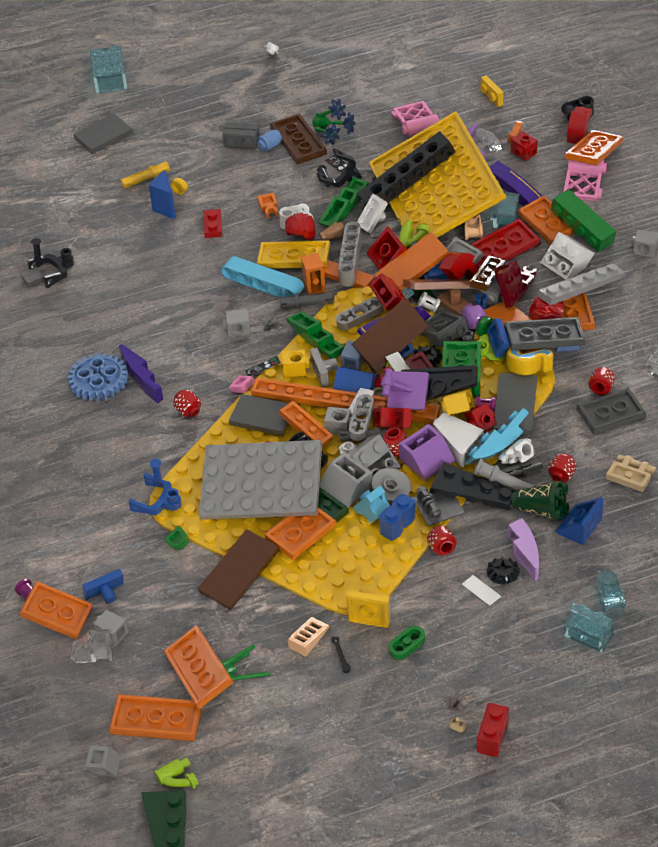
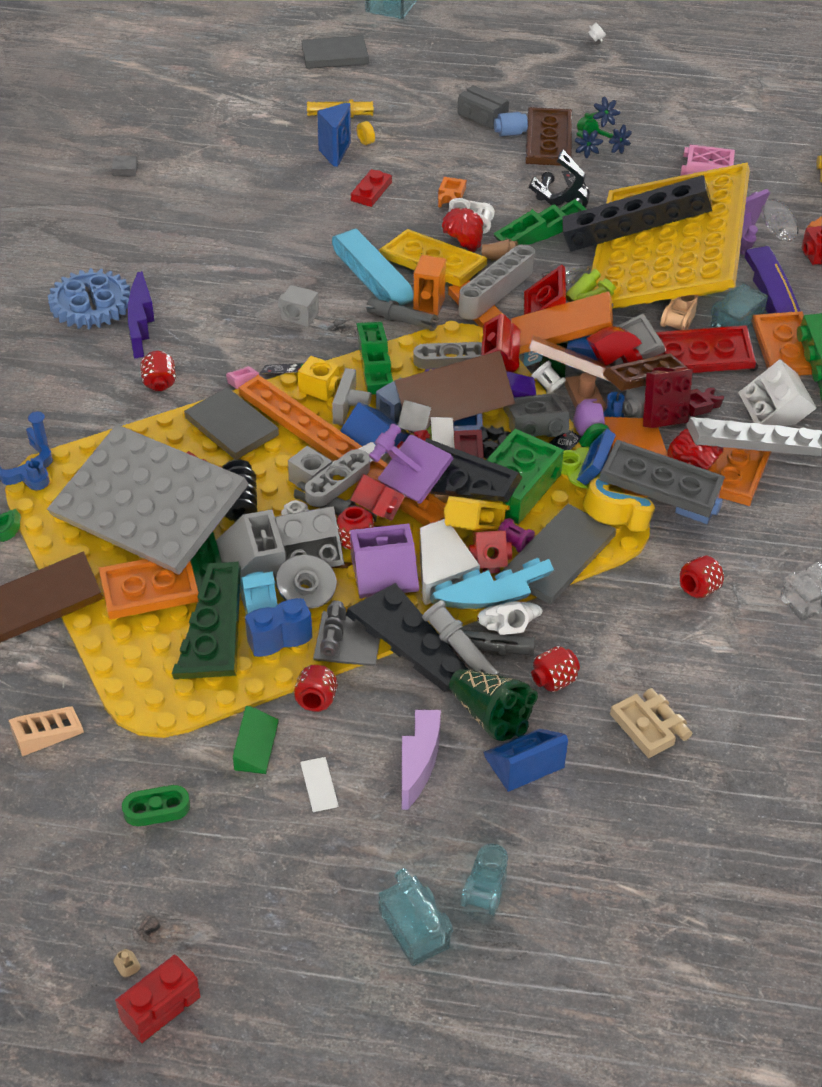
camera: 25 degrees right, 0 degrees up
(62, 262) = (168, 163): black piece -> none
(303, 422) = (266, 457): orange plate -> none
(346, 667) = (56, 798): black hinge -> none
(361, 534) = (213, 628): none -> dark green wing
(368, 609) = (137, 732): yellow tile -> none
(372, 213) = (563, 247): white tile -> none
(376, 361) = (414, 416): none -> flat silver tile
(430, 585) = (255, 741): none -> green slope
(511, 571) = (370, 782): black gear -> none
(611, 411) = (689, 624): dark grey tile -> none

